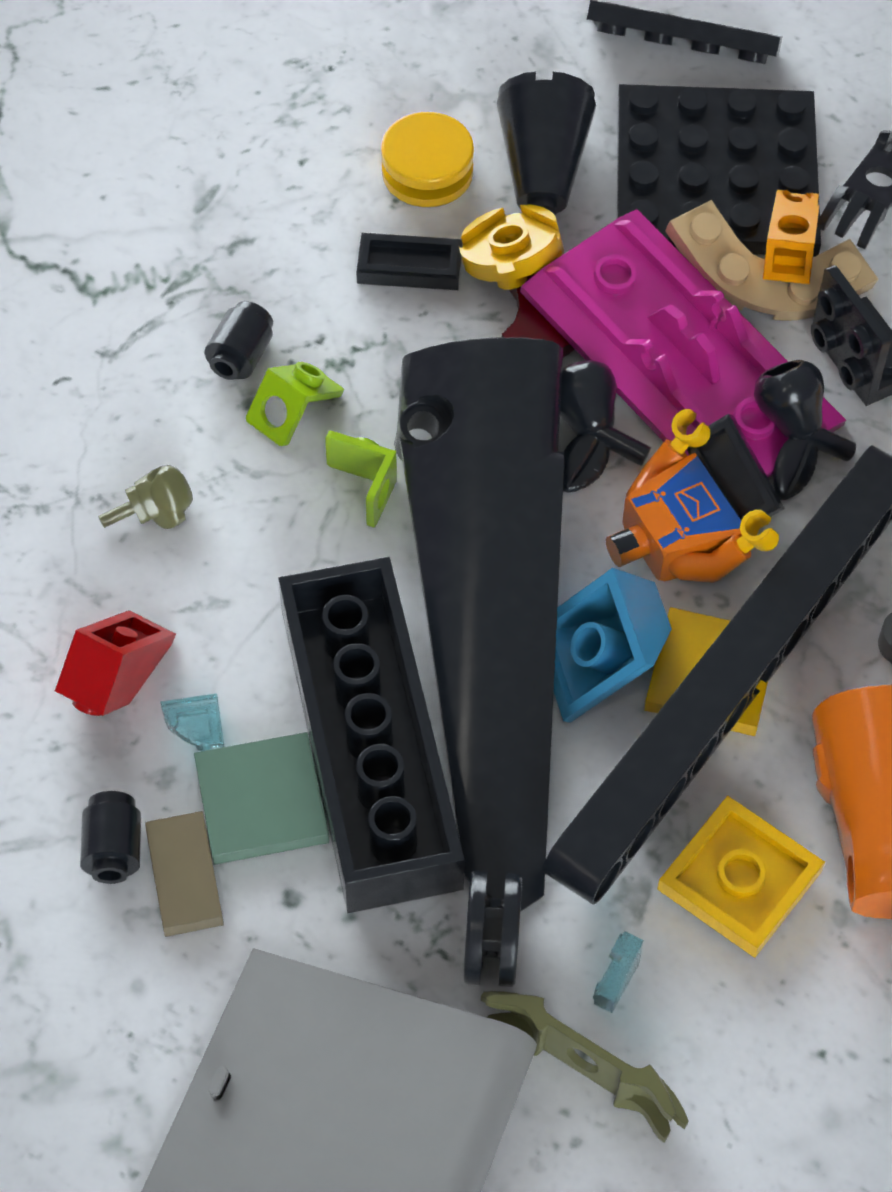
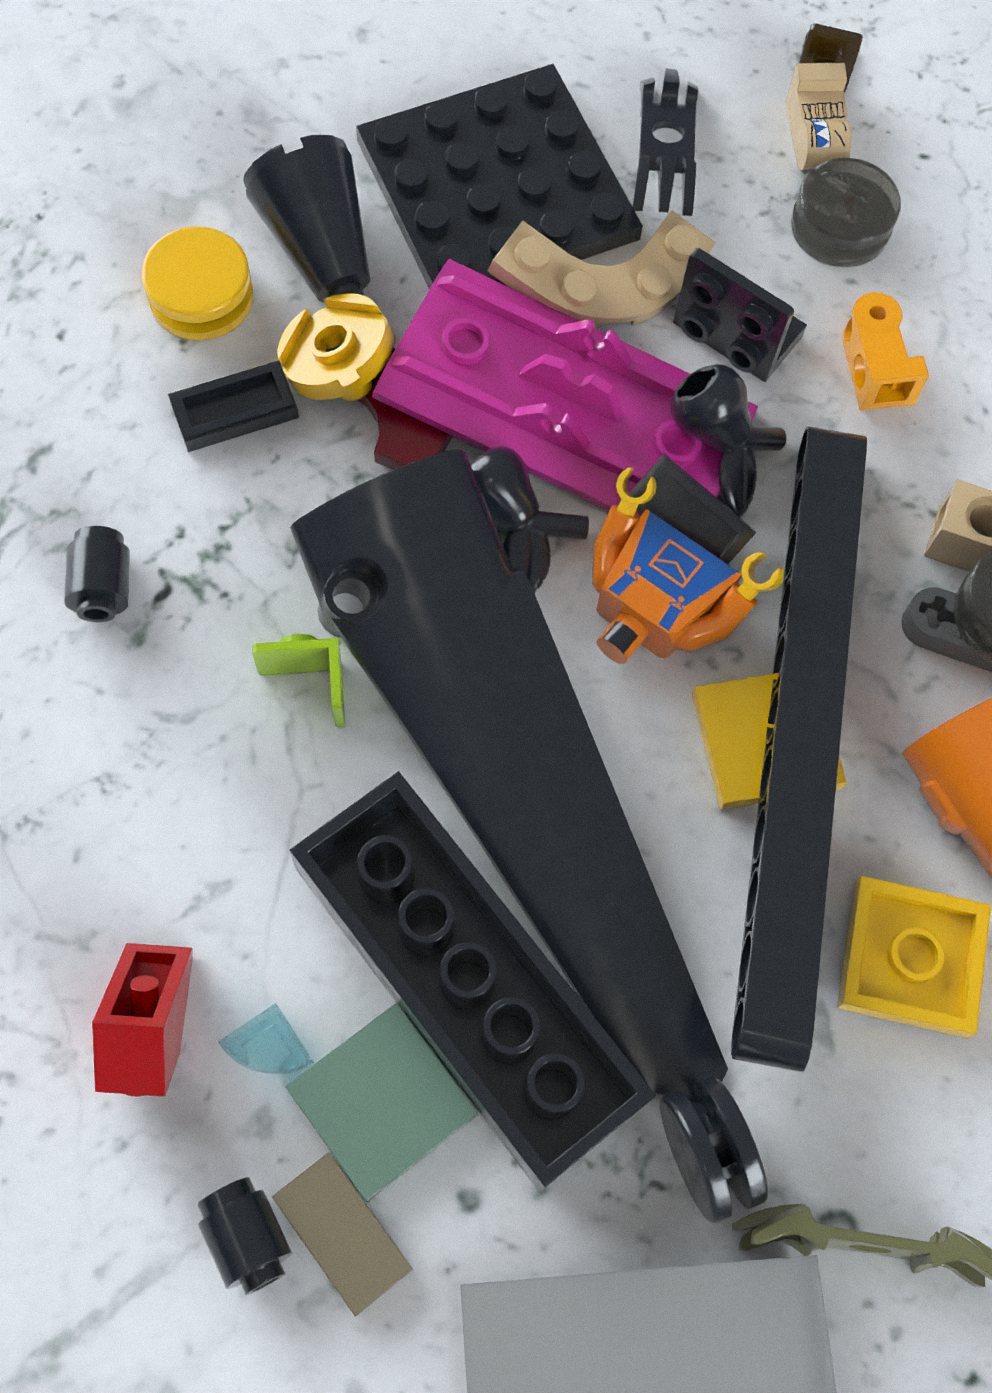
camera: 30 degrees left, 10 degrees up
(156, 496) = (93, 796): olive piece -> none
(296, 387) = (190, 601): lime bracket -> none
(606, 639) = (663, 758): dark azure slope -> none
(625, 961) = (851, 1126): clear light blue tile -> none
(705, 35) = (417, 42): black plate -> none
(791, 237) = (625, 230): light orange leg -> none

